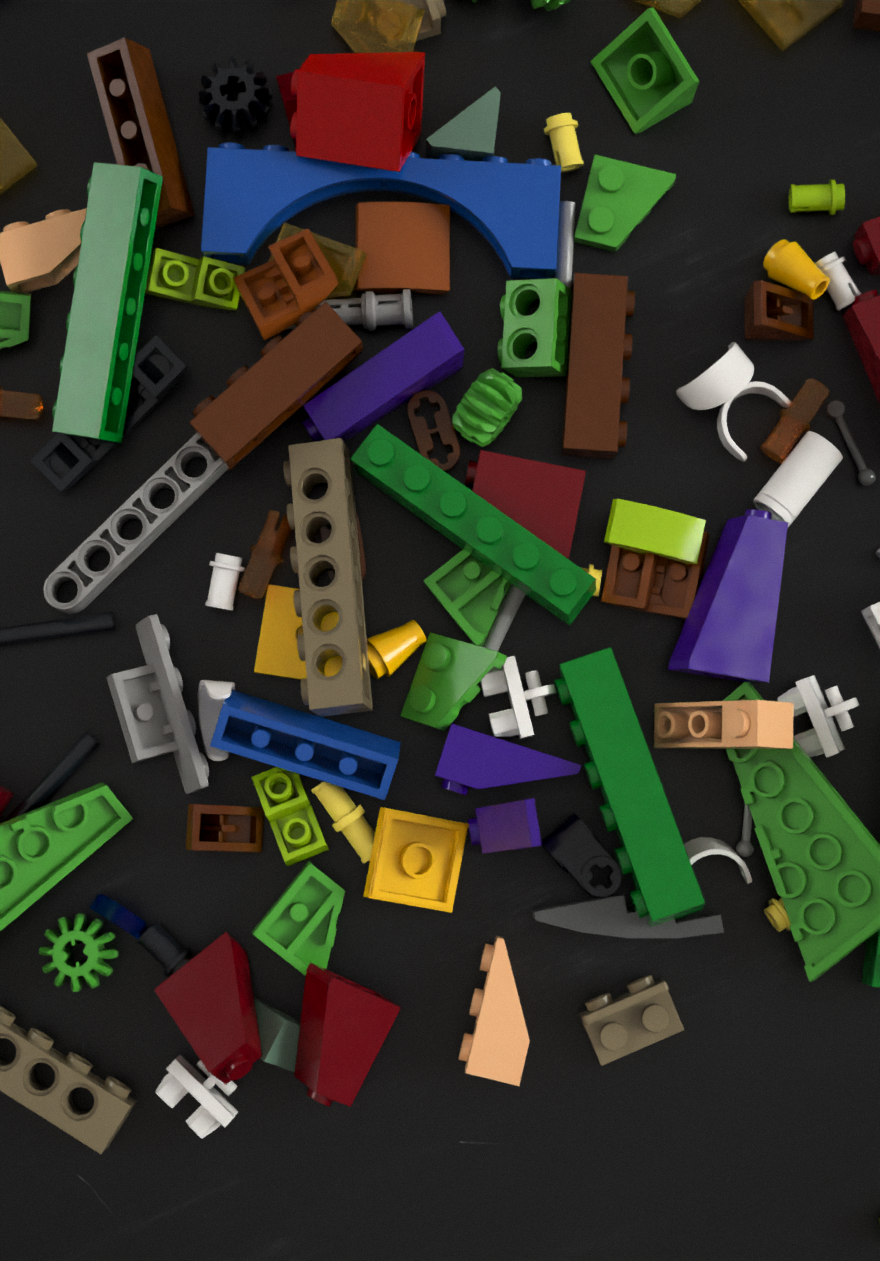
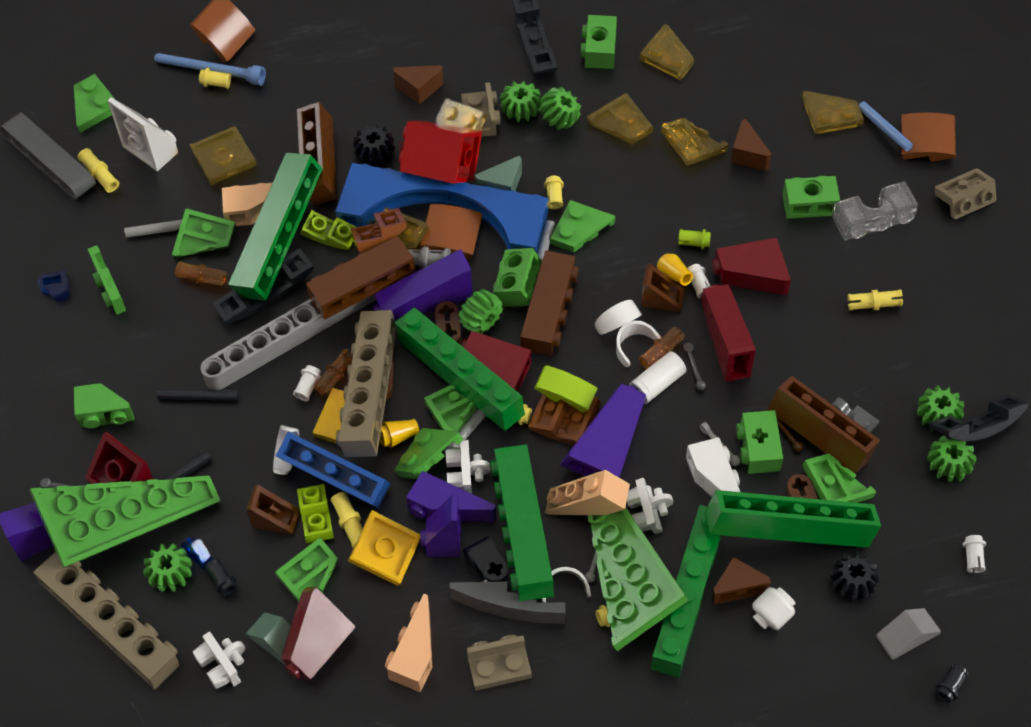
camera: 15 degrees right, 25 degrees down
(154, 709) = (248, 441): light grey bracket -> none
(216, 1008) = (242, 606): dark red slope -> none
(646, 72) = (607, 164): bright green slope -> none

